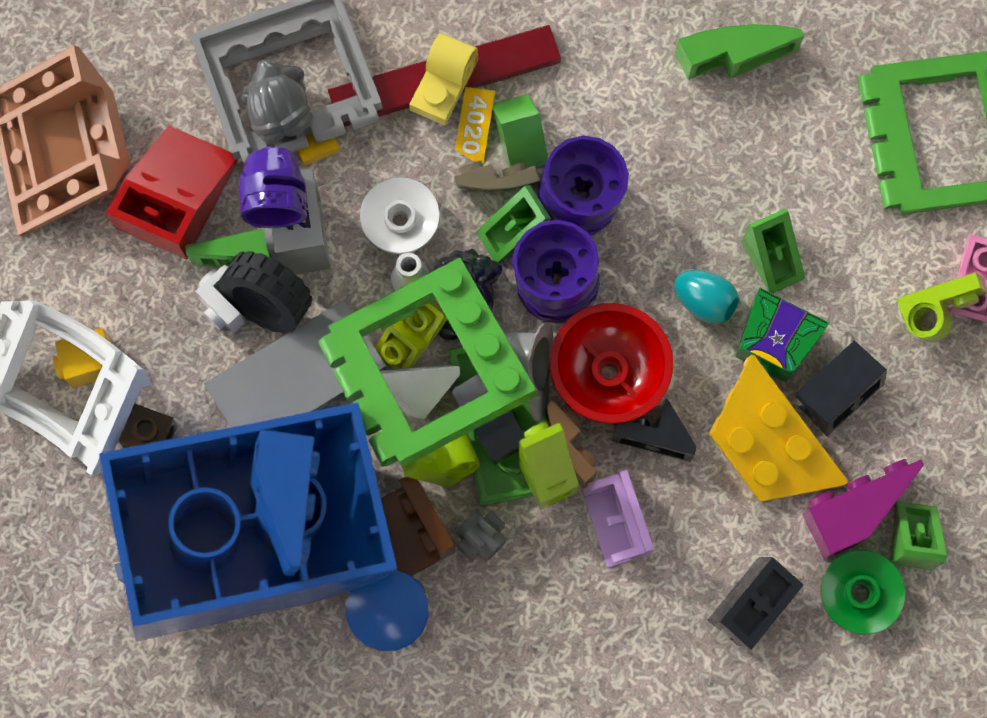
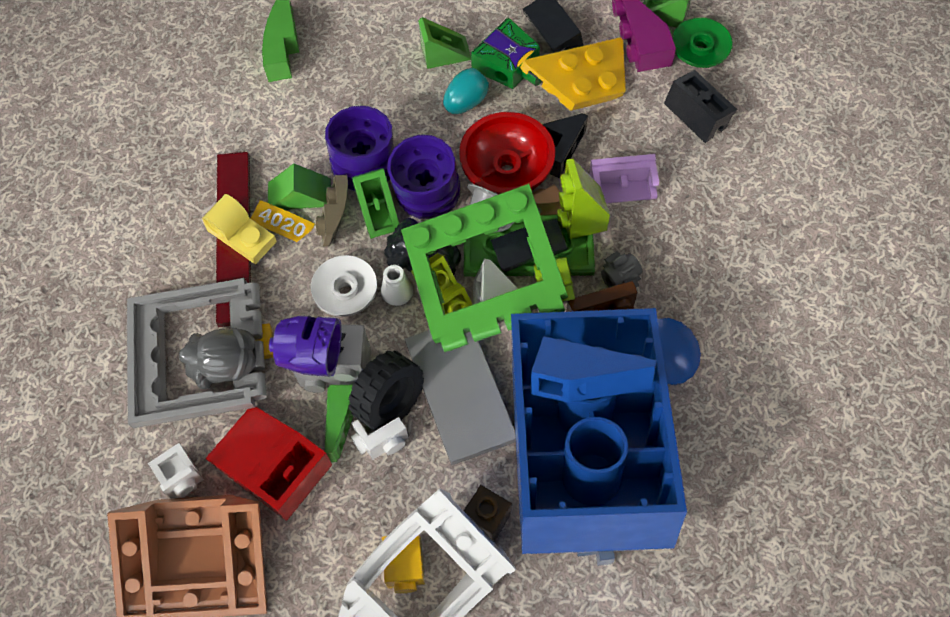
camera: 75 degrees left, 10 degrees down
(146, 101) = (176, 472): none -> white bracket

